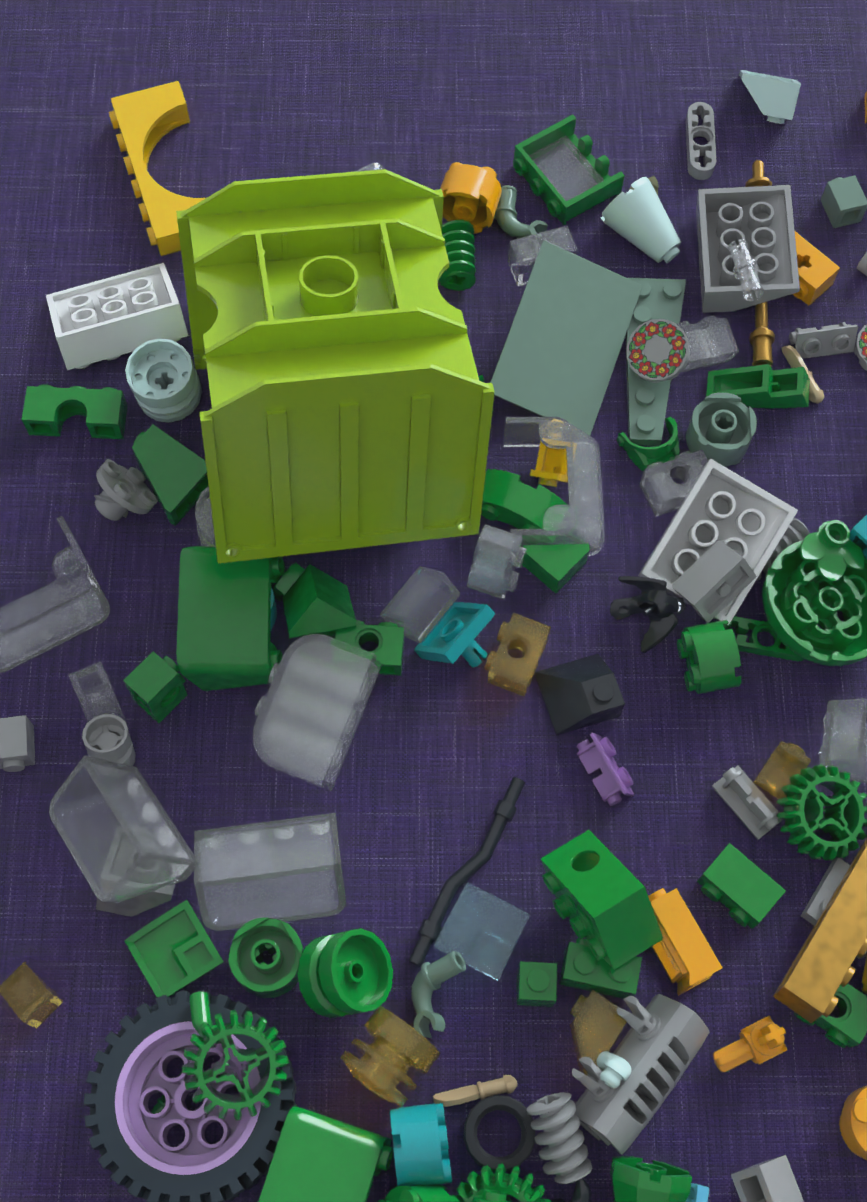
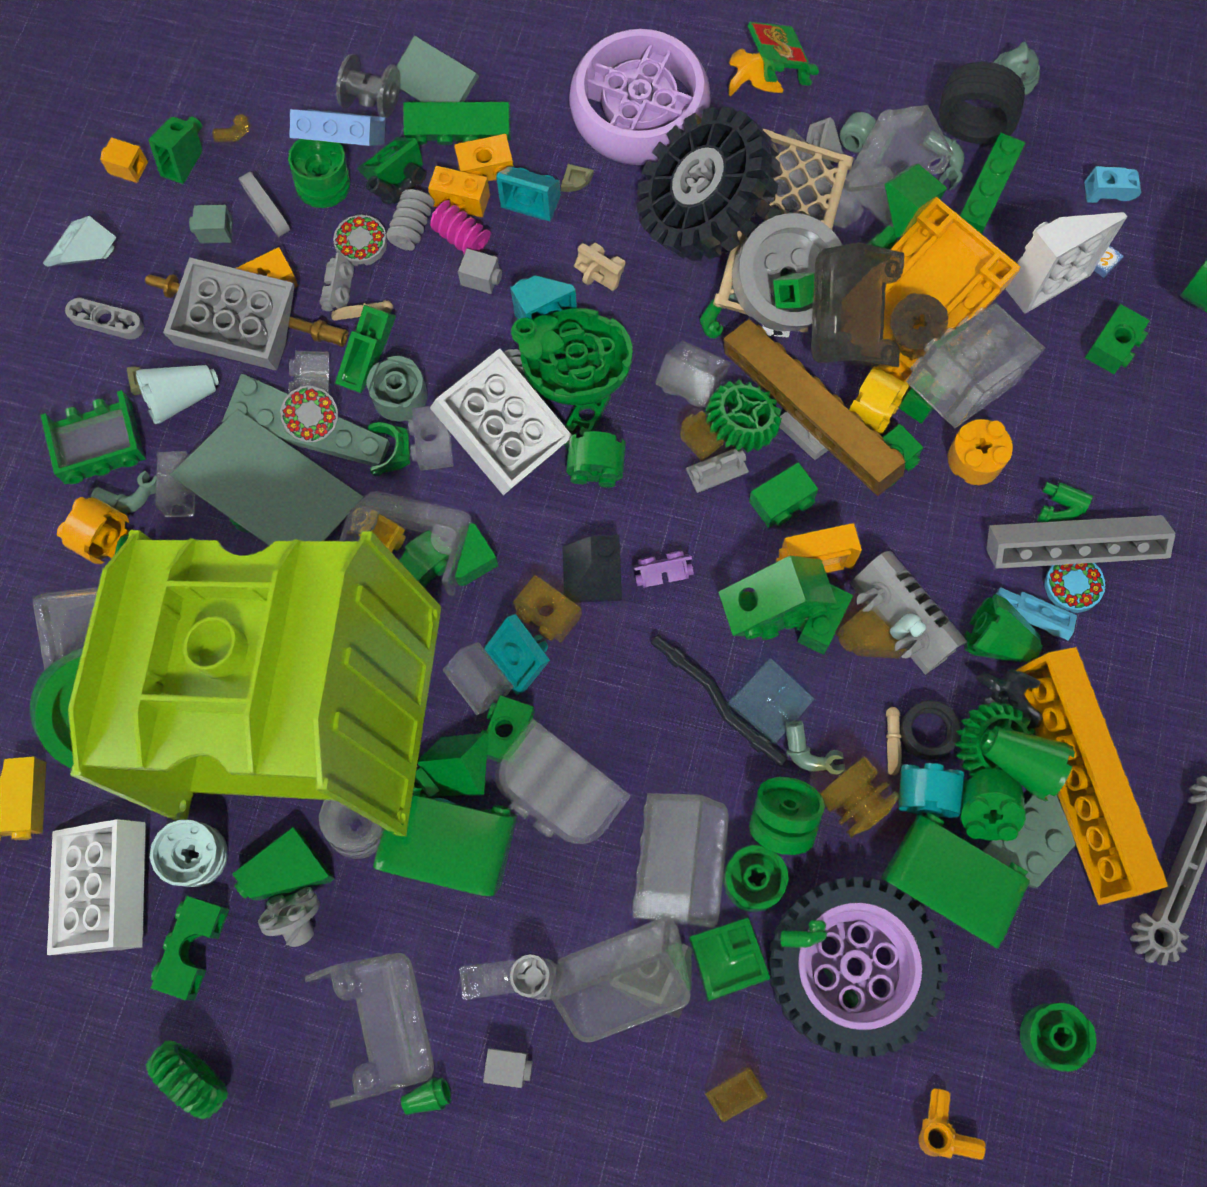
camera: 70 degrees left, 5 degrees up
(156, 686) = (493, 922): green brick -> none
(218, 1073) = (850, 892): green gear -> none
(495, 562) = (464, 602): clear brick -> none
(536, 984) = (824, 669): green brick -> none
(561, 1136) = (947, 683): light grey piece -> none
(651, 602) = (538, 486): black animal -> none
(714, 580) = (536, 433): light grey panel -> none
(746, 270) = (262, 318): clear pin -> none
(756, 1043) = (903, 519): light orange axle -> none

